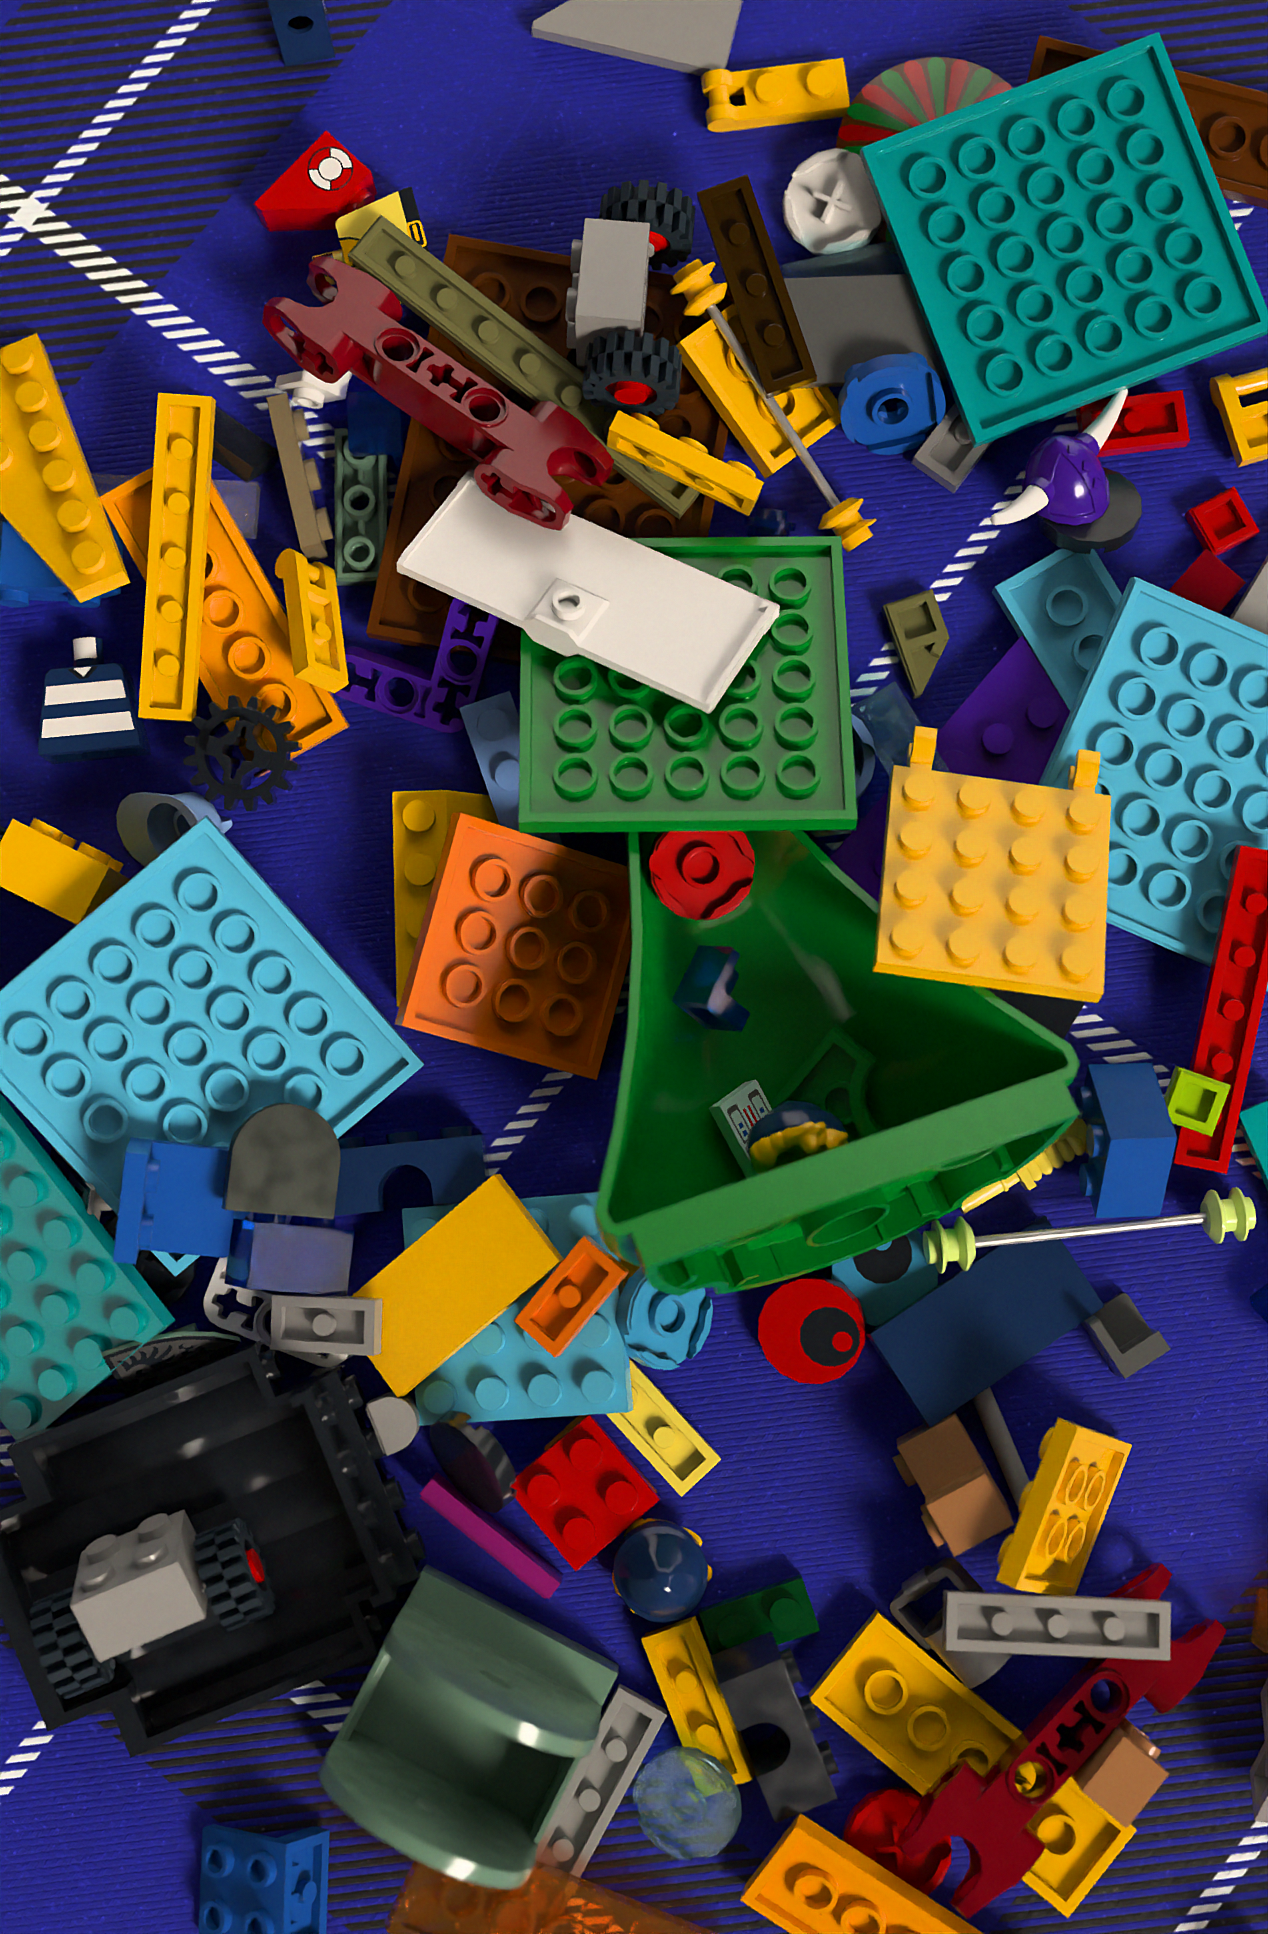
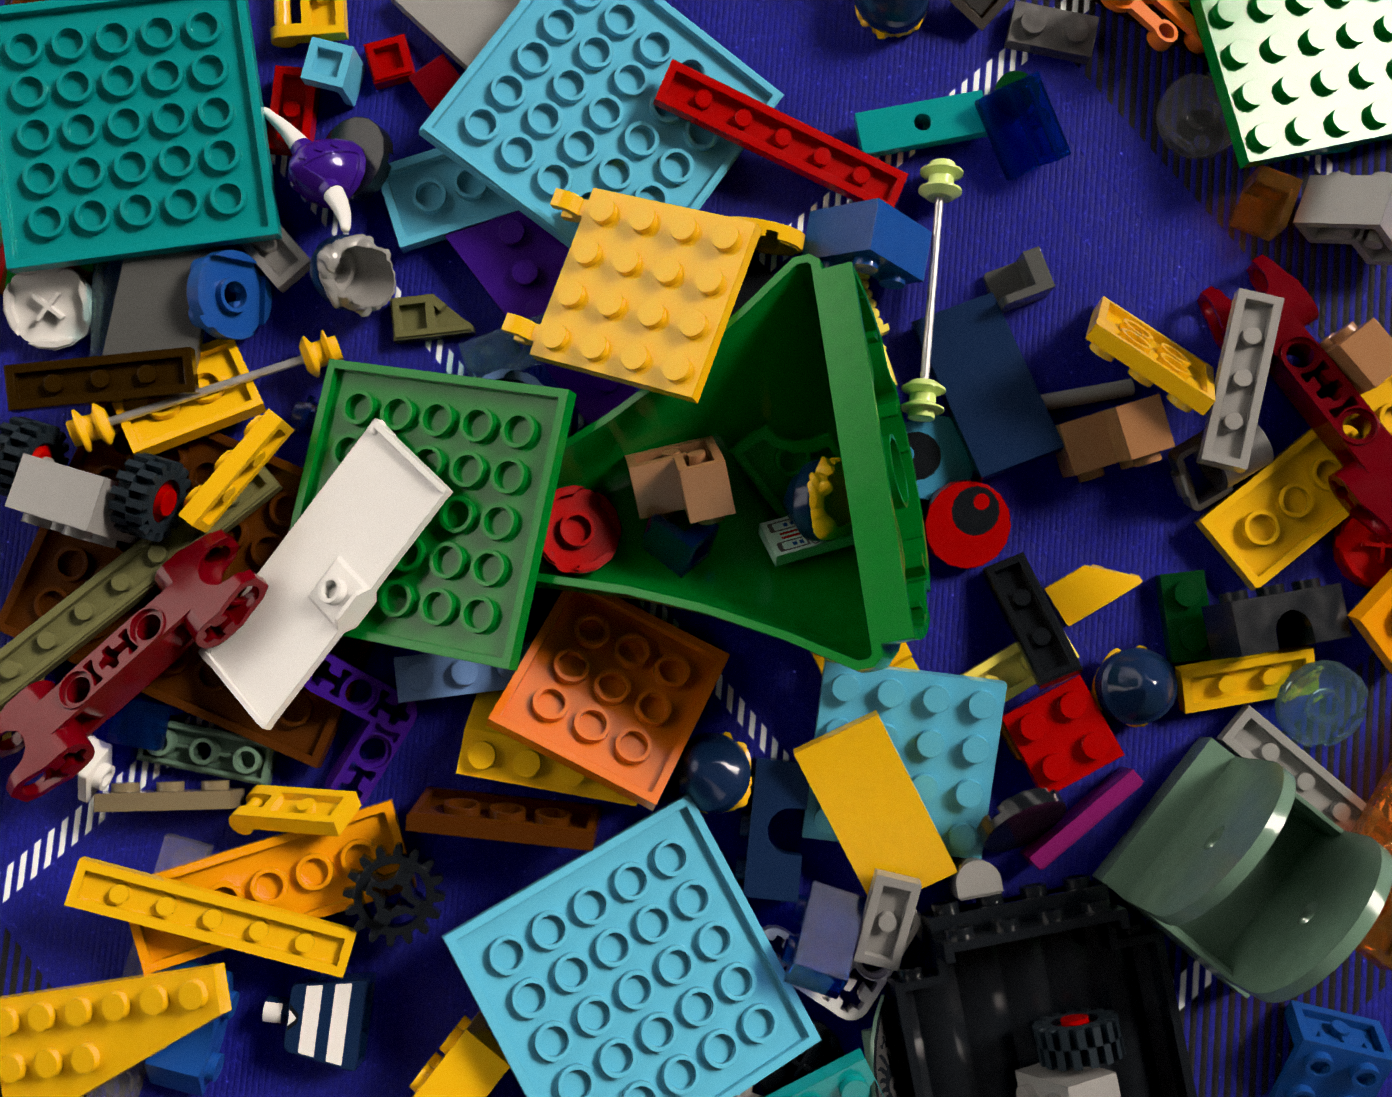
camera: 80 degrees left, 0 degrees up
(155, 821) = (436, 980): piece -> none
(172, 1200) = (760, 1027): blue bracket -> none
(240, 448) = (133, 843): black tile -> none
(283, 1164) = (749, 929): pearl dark grey tile -> none
(353, 860) = (505, 818): none -> reddish brown tile
(454, 1089) = (715, 772): none -> dark blue hair
(571, 1295) = (906, 710): orange plate -> none
(662, 1326) = (945, 648): dark azure tile -> none
(712, 1430) = (1032, 621): none -> black tile
(764, 1494) = (1089, 590): none -> yellow slope
(787, 975) = (682, 477): none -> medium nougat brick
(949, 540) = (353, 273): none -> light grey hair
(1106, 1017) = (777, 238): none -> yellow tile
(1192, 459) = (334, 68): none -> medium azure panel
(1195, 1100) = (847, 182): lime tile -> none

